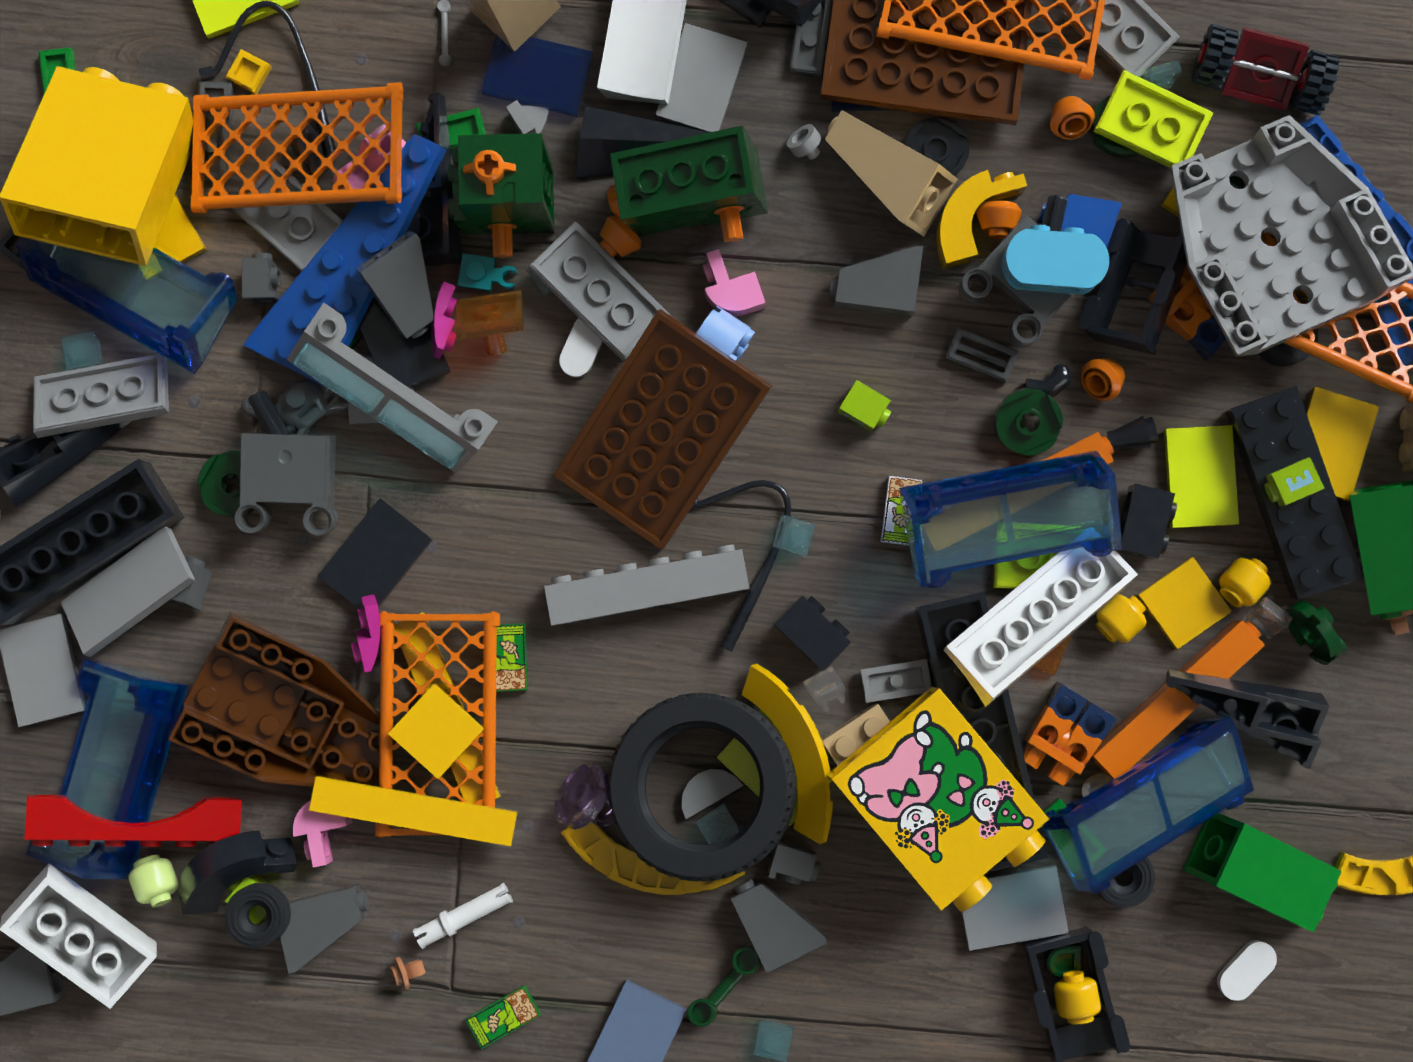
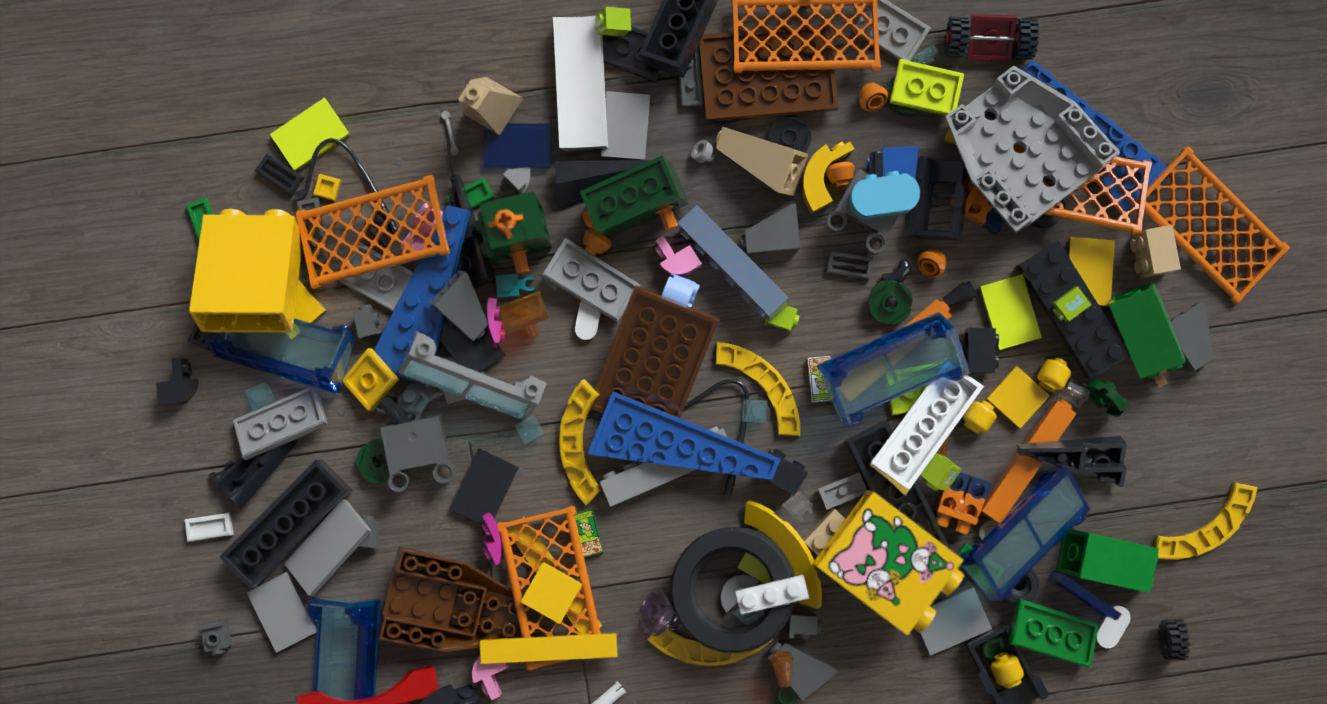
camera: 15 degrees left, 0 degrees up
(203, 57) = (294, 184): none -> black tile
(245, 362) = (370, 379): none -> yellow tile
(460, 487) = (529, 429): none -> clear light blue plate
(517, 521) = (572, 442): none -> yellow tile
(637, 537) = (652, 436): none -> blue wing
(749, 916) = (783, 667): none -> clear orange cone
(756, 805) = (772, 594): none -> white plate
(812, 312) = (733, 262): none -> sand blue brick
(825, 495) = (769, 380): none -> yellow tile
(1045, 686) = (940, 472): none -> lime brick
(1157, 959) = (1053, 633): none -> green tile
(1216, 915) = (1084, 595): none -> clear blue tile
(1333, 1010) = (1174, 639): none -> black tyre

